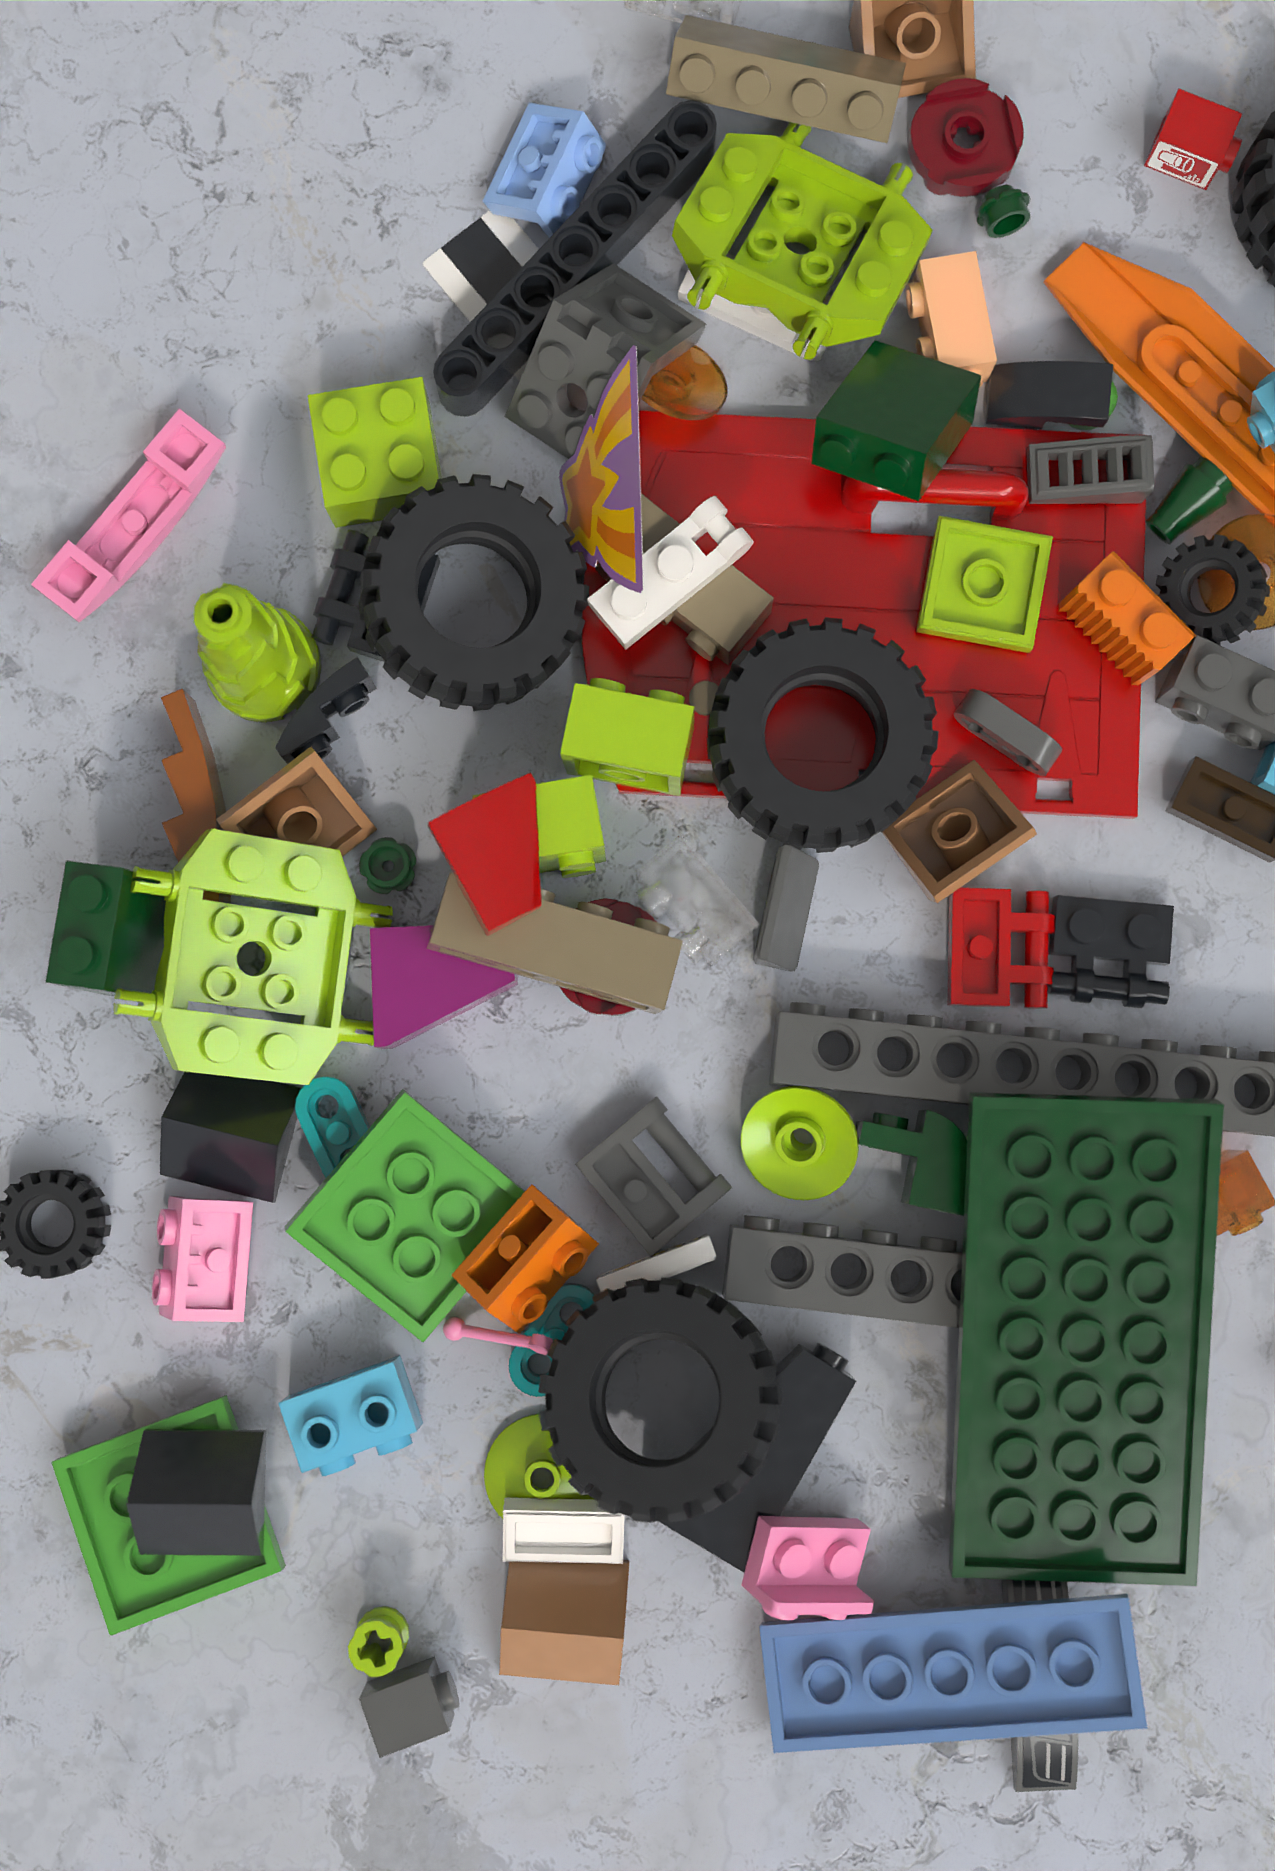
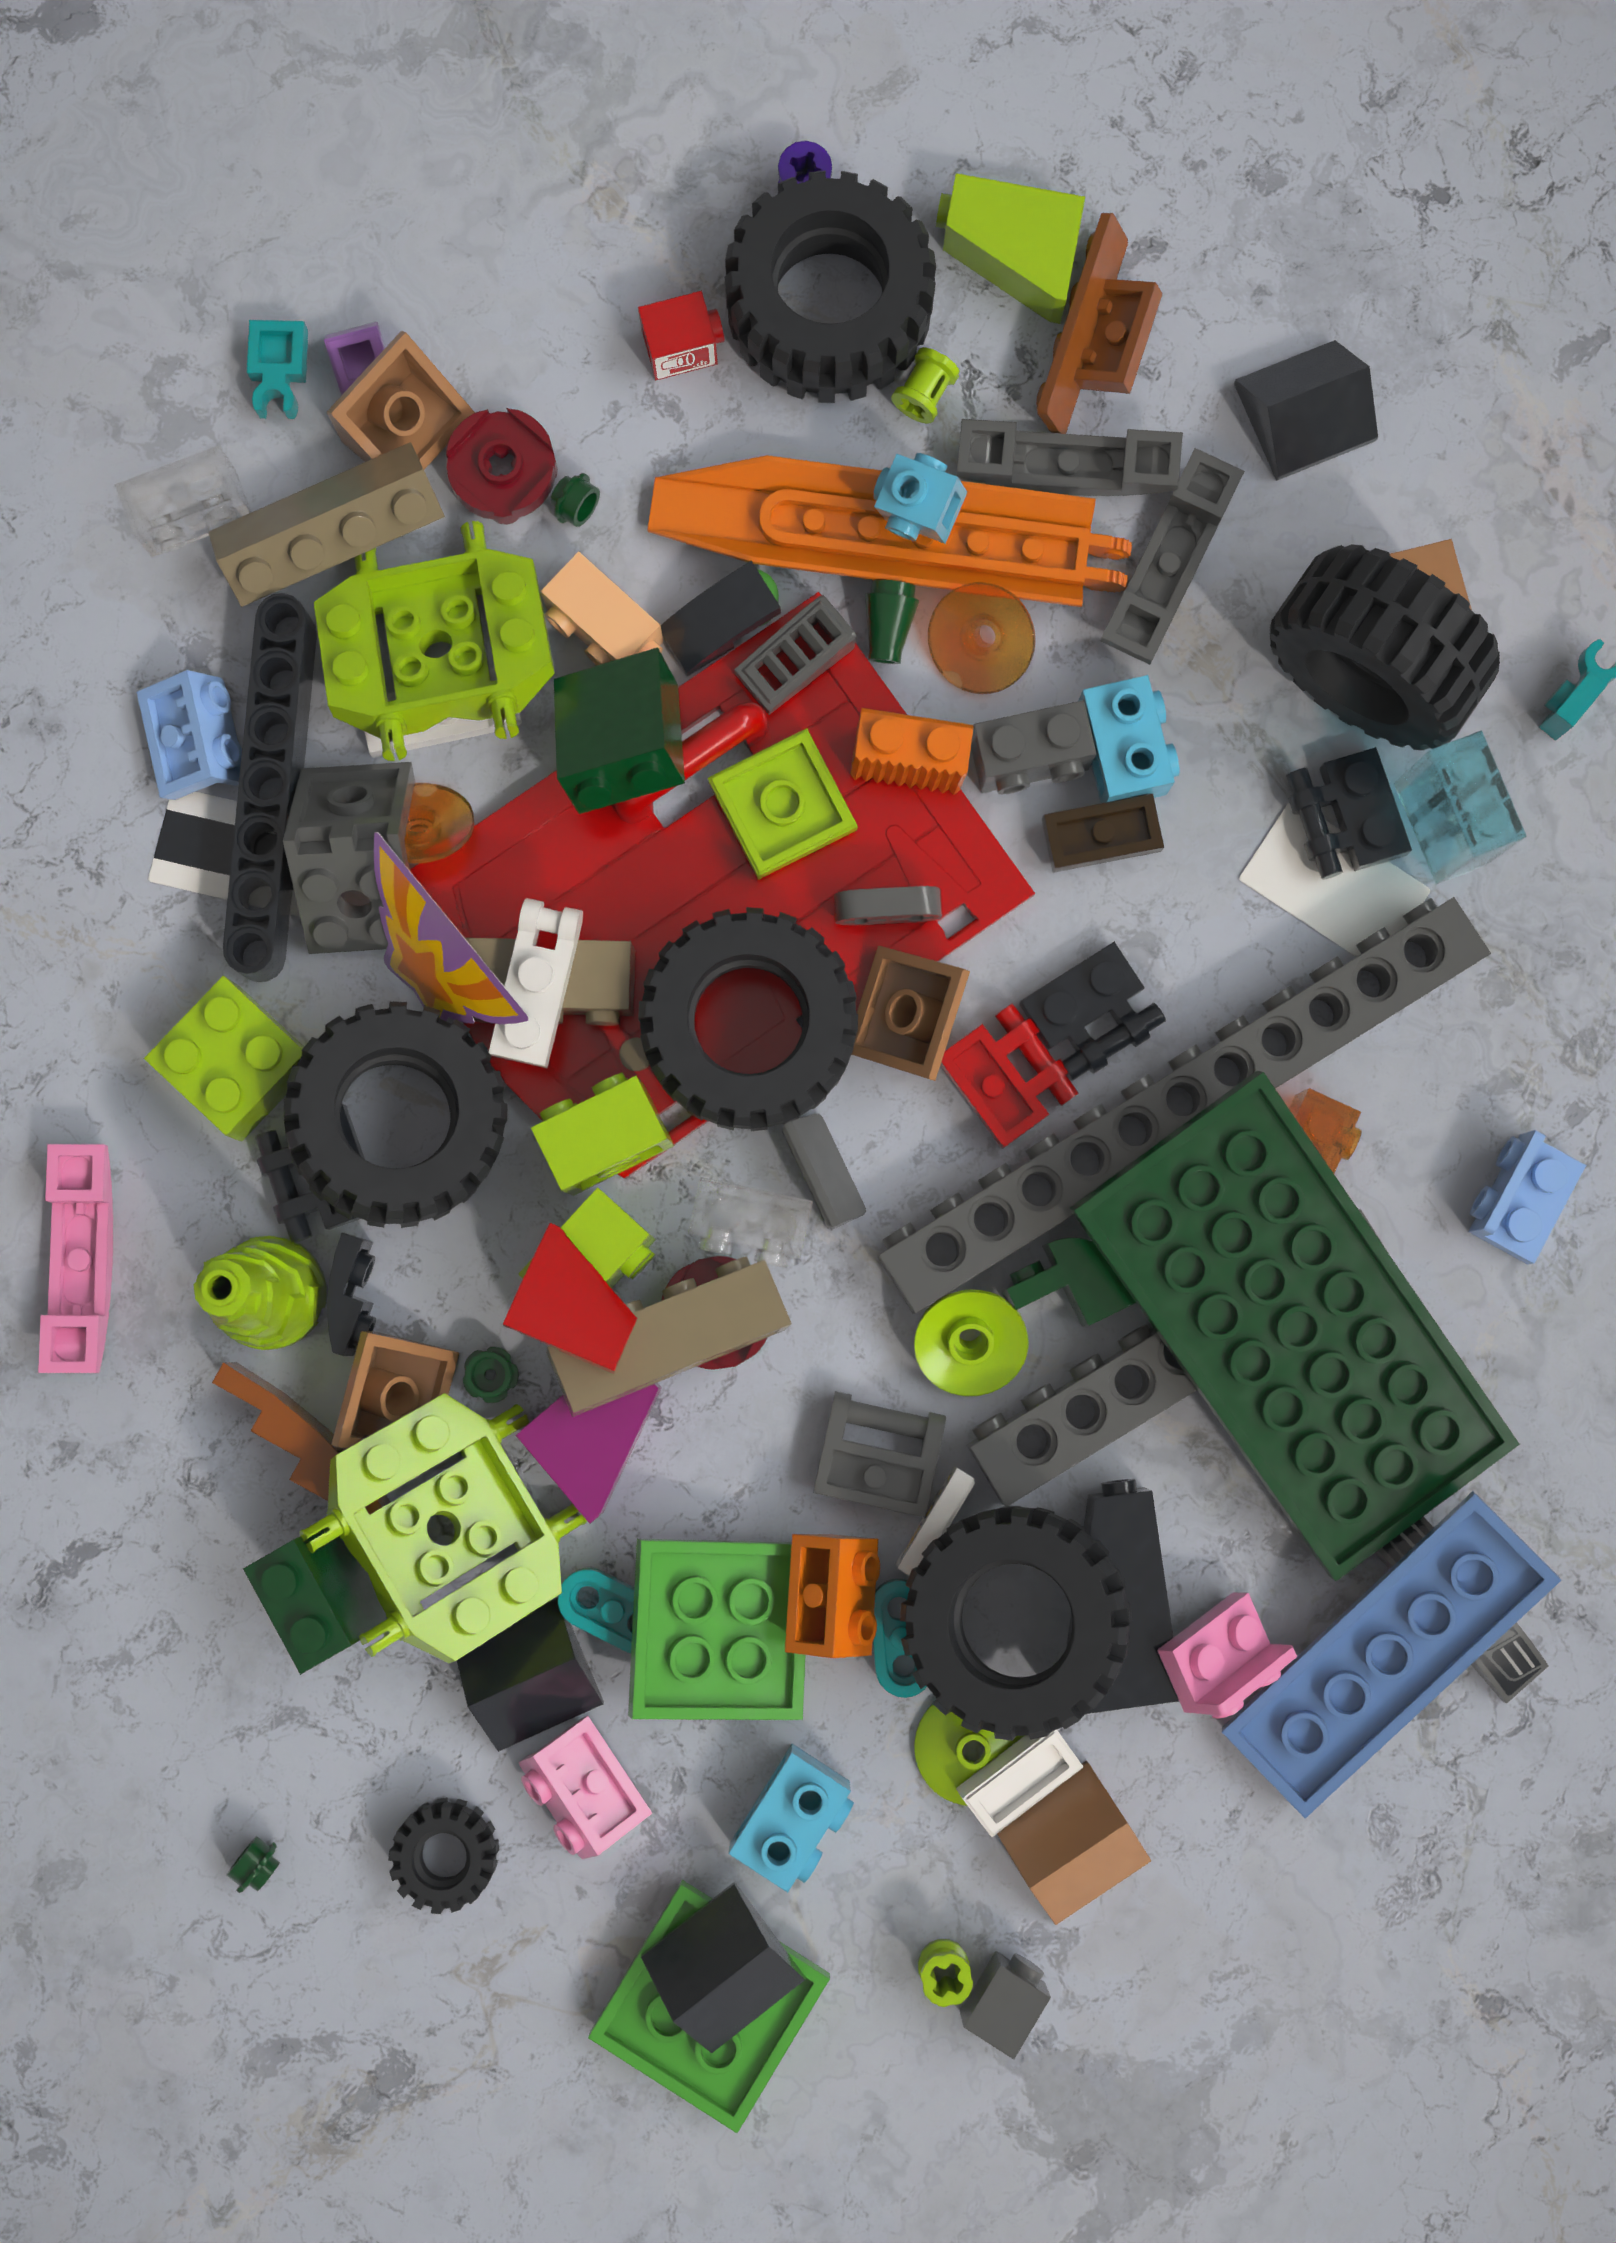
camera: 40 degrees left, 0 degrees up
(455, 1329) = (819, 1689): bright pink hinge -> none
(1208, 555) = (990, 664): black tyre -> none

